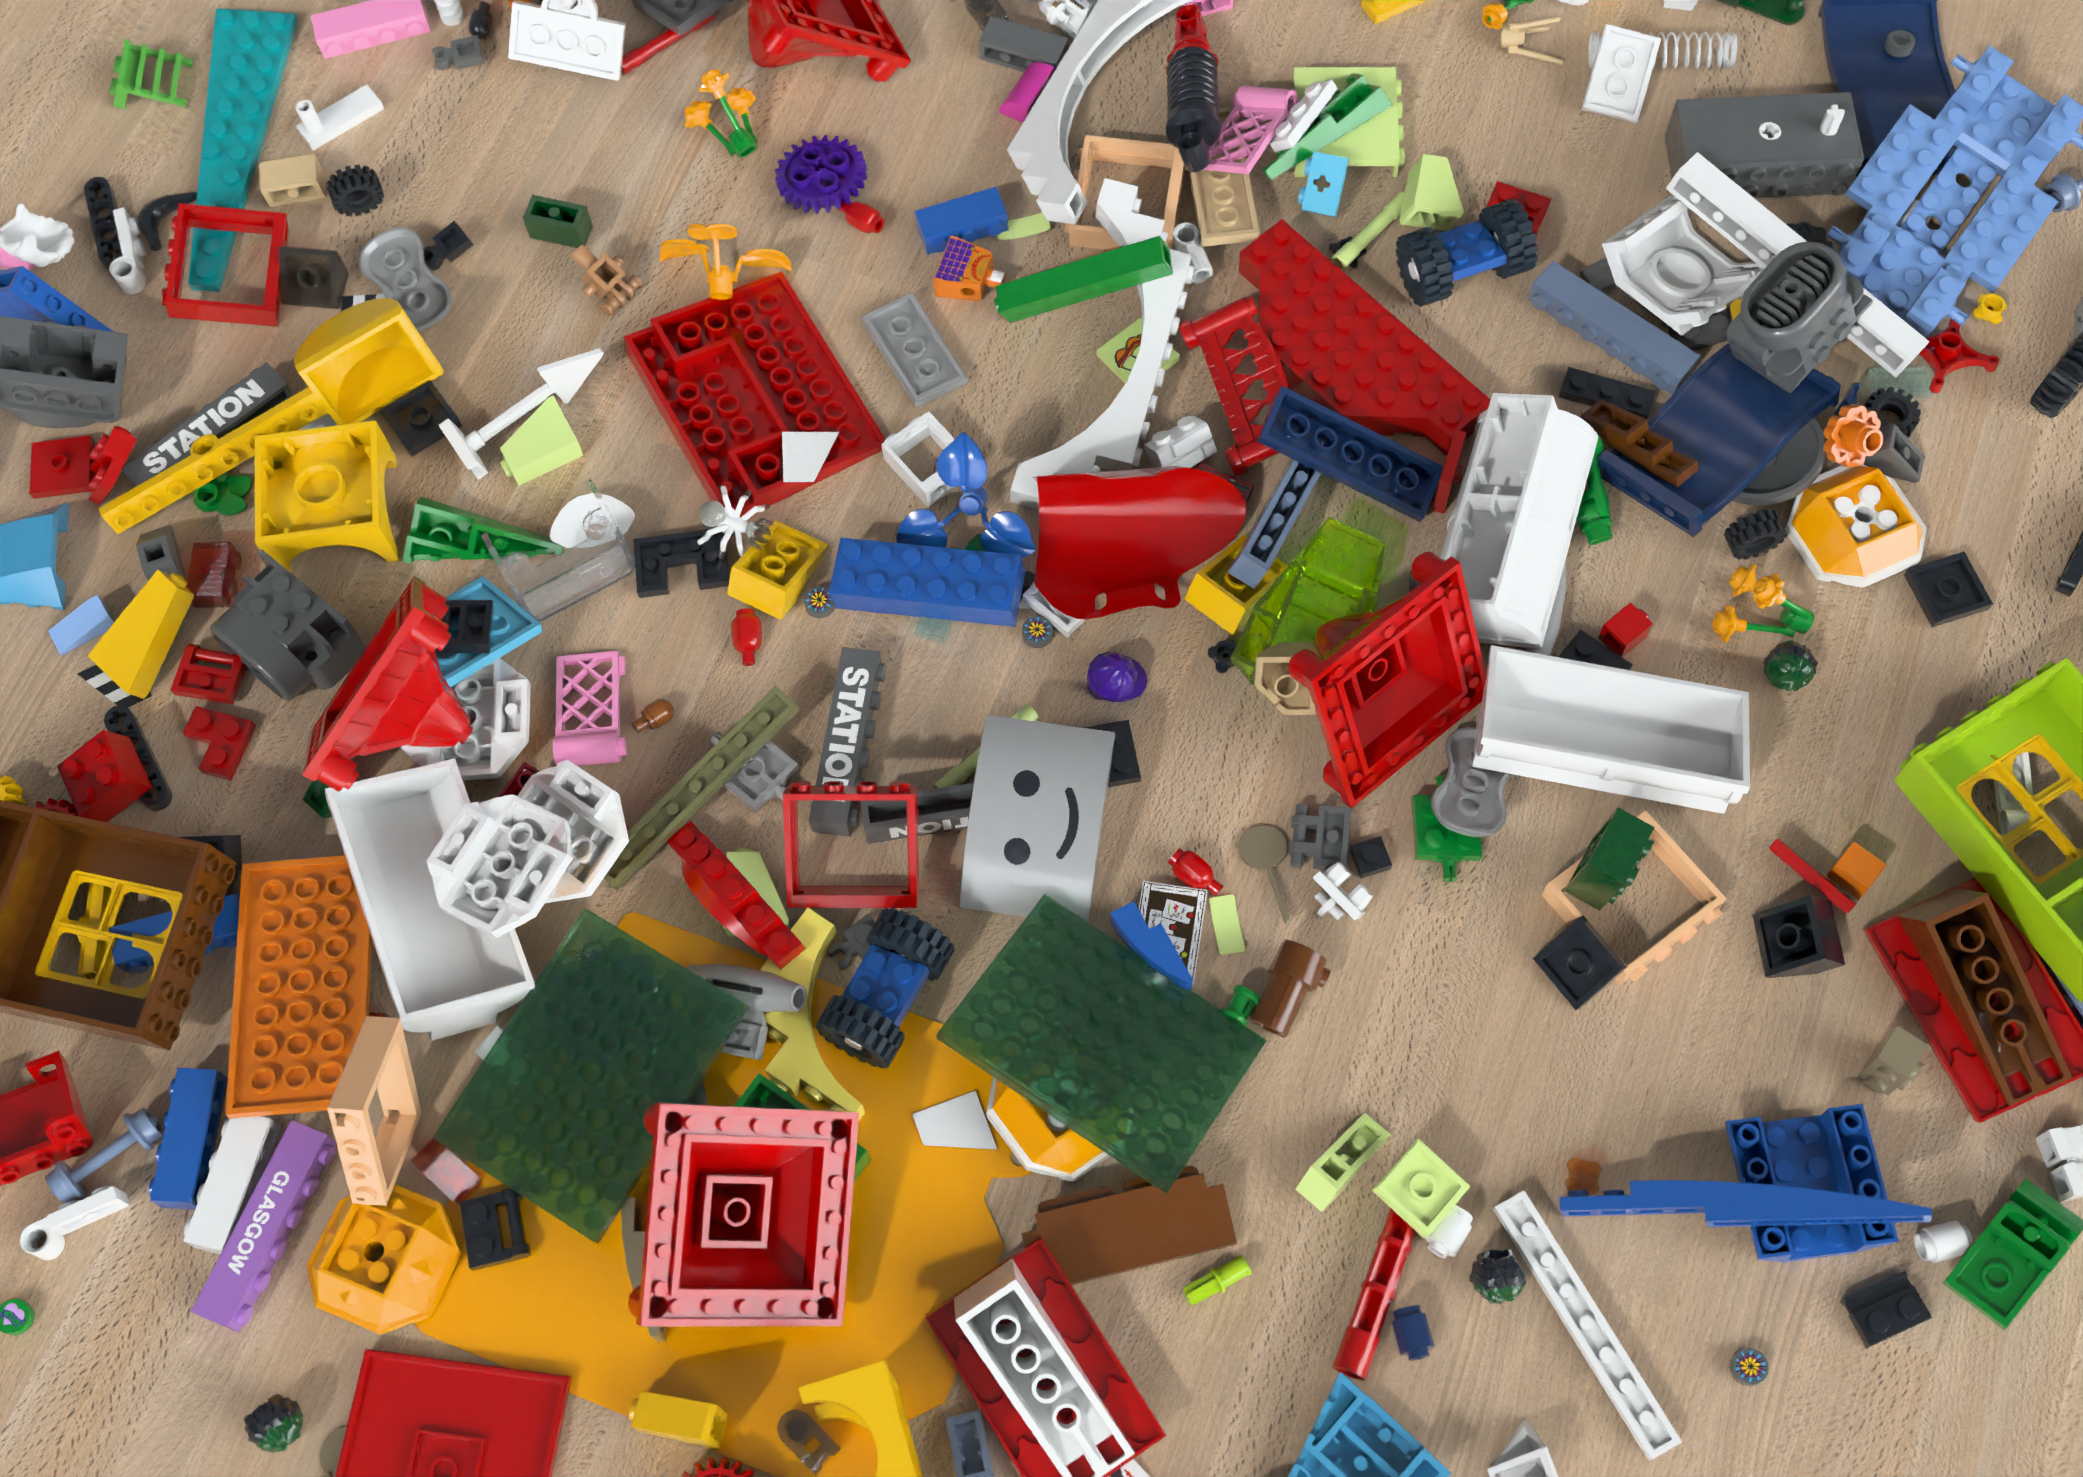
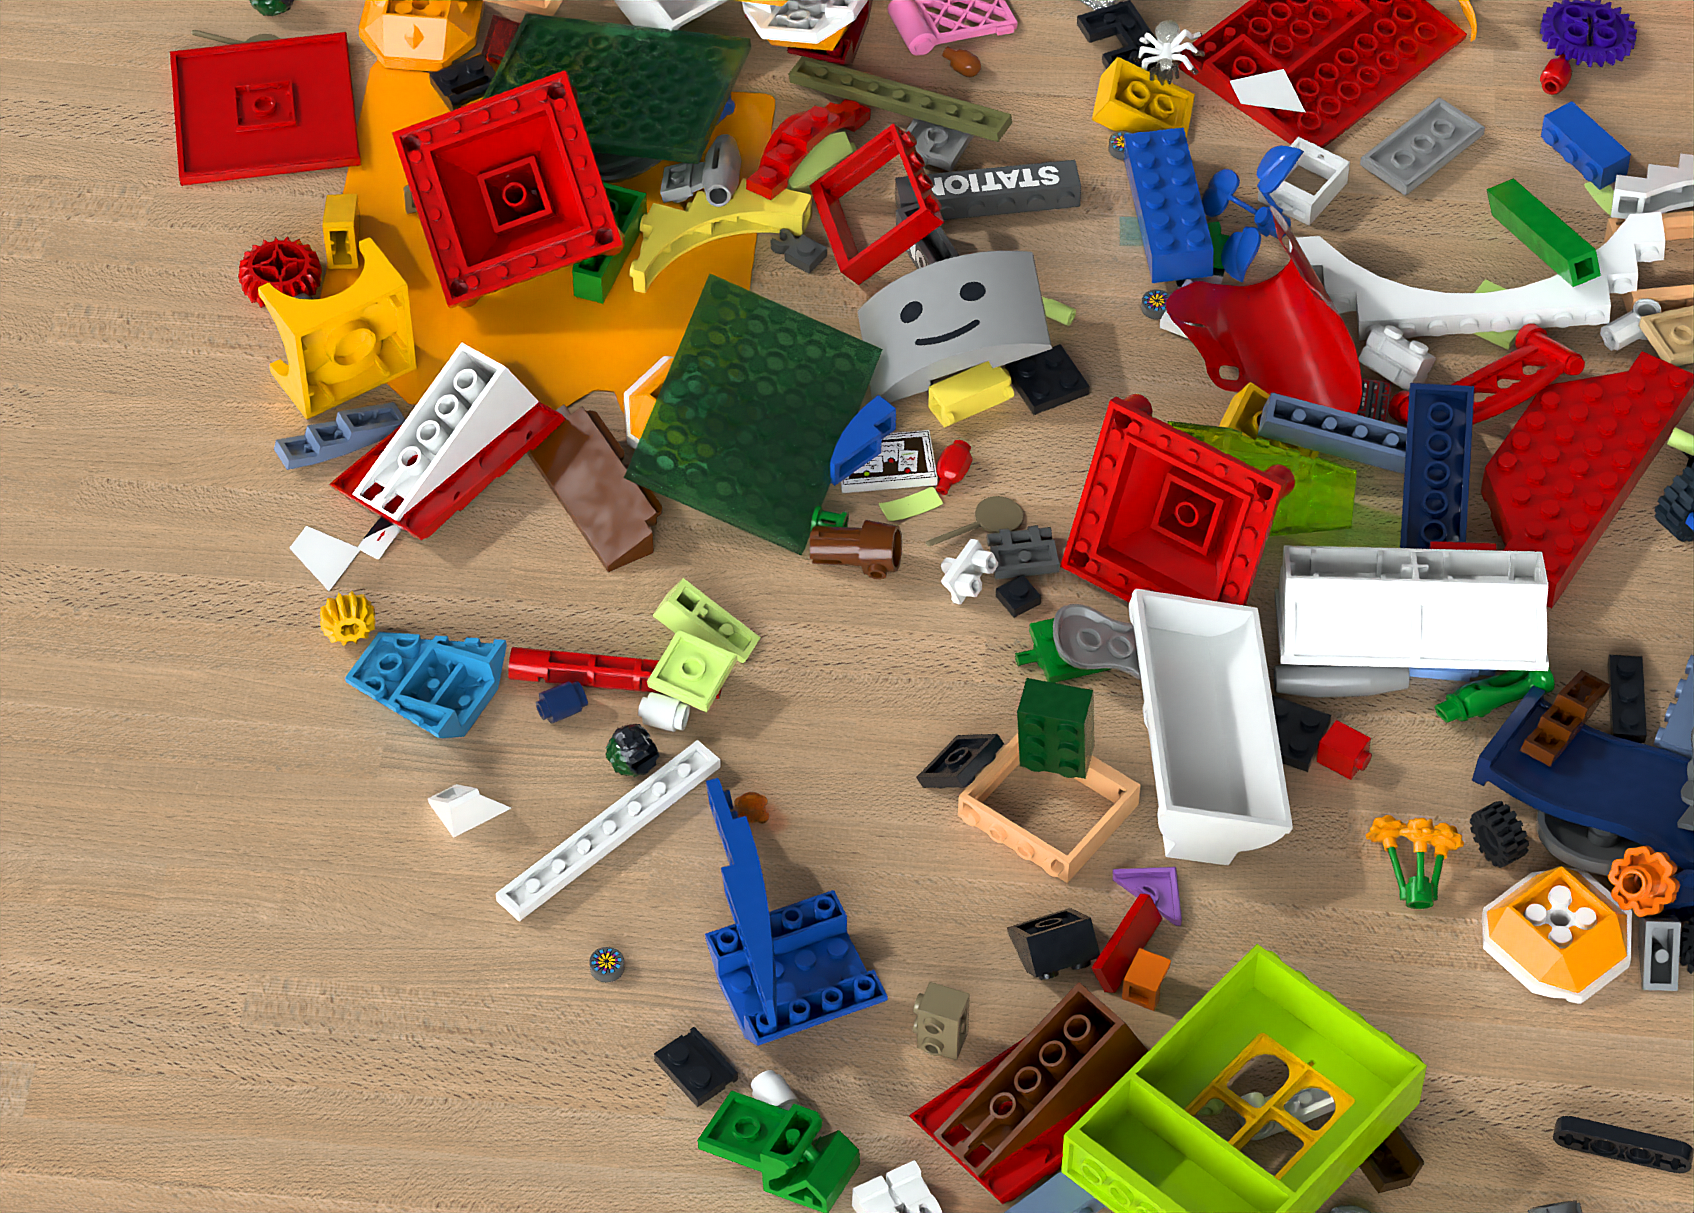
camera: 70 degrees right, 15 degrees down
(746, 634) = (1068, 102): red plant -> none
(884, 987) = (789, 263): black plate -> none
(955, 1124) = (649, 347): white sticker -> none
(966, 271) = (1527, 158): torso -> none
(1114, 845) = (969, 393): none -> light yellow brick
(1115, 677) = (1130, 367): dark purple piece -> none
(1216, 1280) = (568, 558): lime axle -> none
(1745, 833) = (1157, 882): none -> medium lavender tile
(1790, 666) = (1355, 887): dark green piece -> none
(1948, 589) = (1513, 1024): black plate -> none

